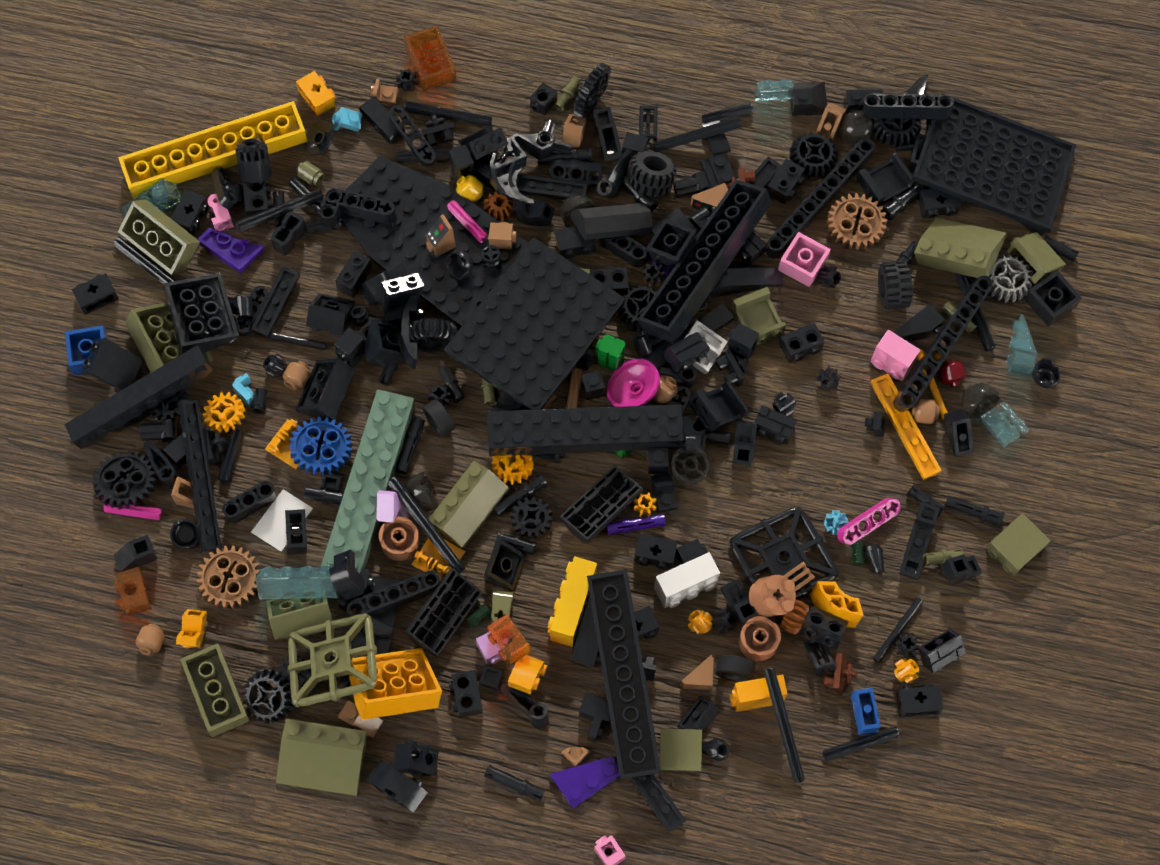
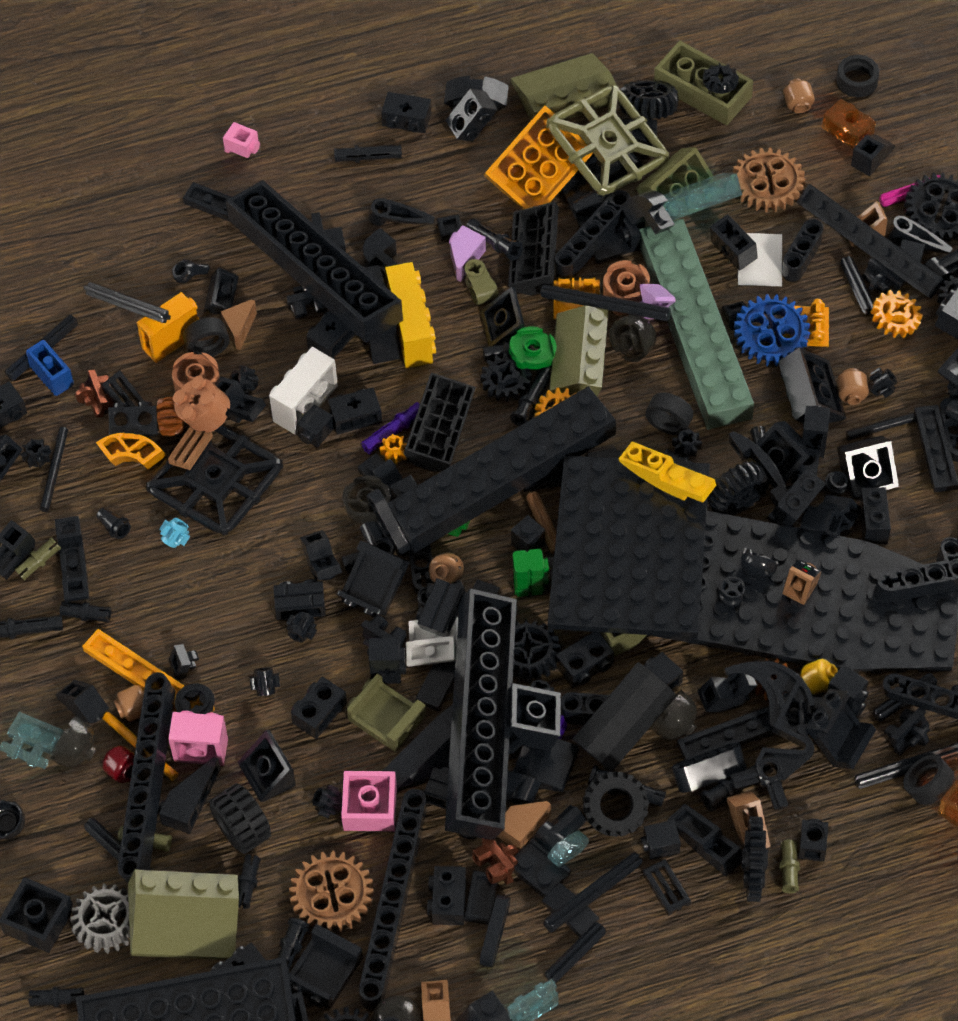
camera: 155 degrees right, 10 degrees down
(86, 619) = (857, 89): none -> black tyre
(184, 534) = (841, 188): black hair -> none
(192, 629) = (763, 118): light orange brick -> none
(207, 679) = (712, 80): none -> black gear
(242, 390) = (894, 343): medium azure bracket -> none
(258, 405) = (870, 345): black pin -> none
(323, 495) = (735, 293): black axle -> none
(413, 438) = (681, 381): black pin -> none
(437, 87) = (936, 787): none -> black tyre
(450, 800) = (406, 112): none -> black brick
(467, 221) = (789, 623): dark pink axle -> none
(469, 693) = (463, 197): black brick -> none
(473, 662) = (500, 241): none -> black pin
(478, 616) = (498, 268): clear green pin -> none
(481, 345) = (665, 474): none -> yellow slope
(496, 512) = (528, 358): none -> green plate
(502, 235) = (736, 619): medium nougat brick -> none
(504, 629) = (437, 241): clear orange brick -> none
(527, 674) = (414, 233): light orange brick -> none
(563, 681) = (379, 250): none -> black brick
(575, 754) = (325, 205): medium nougat tile -> none
(585, 780) = (306, 184): dark purple wing -> none
(615, 177) = (657, 778): black piece -> none
(633, 383) = (482, 554): dark pink dish -> none
(680, 749) = (221, 251): olive slope -> none
(700, 621) = (268, 367): light orange gear -> none
(701, 164) = (568, 848): none -> clear light blue beam
(769, 147) = (495, 931): none -> black beam
(813, 147) = (415, 942): black gear -> none
(856, 320) = (267, 768): none -> black slope
(858, 552) = (137, 523): clear green pin -> none
(870, 523) = (138, 550): dark pink beam -> none
(885, 376) = (191, 693): none -> black gear
(906, 670) = (25, 428): light orange gear -> none
(1023, 349) = (45, 834): clear light blue slope -> none
(1038, 255) = (80, 955): olive panel -> none

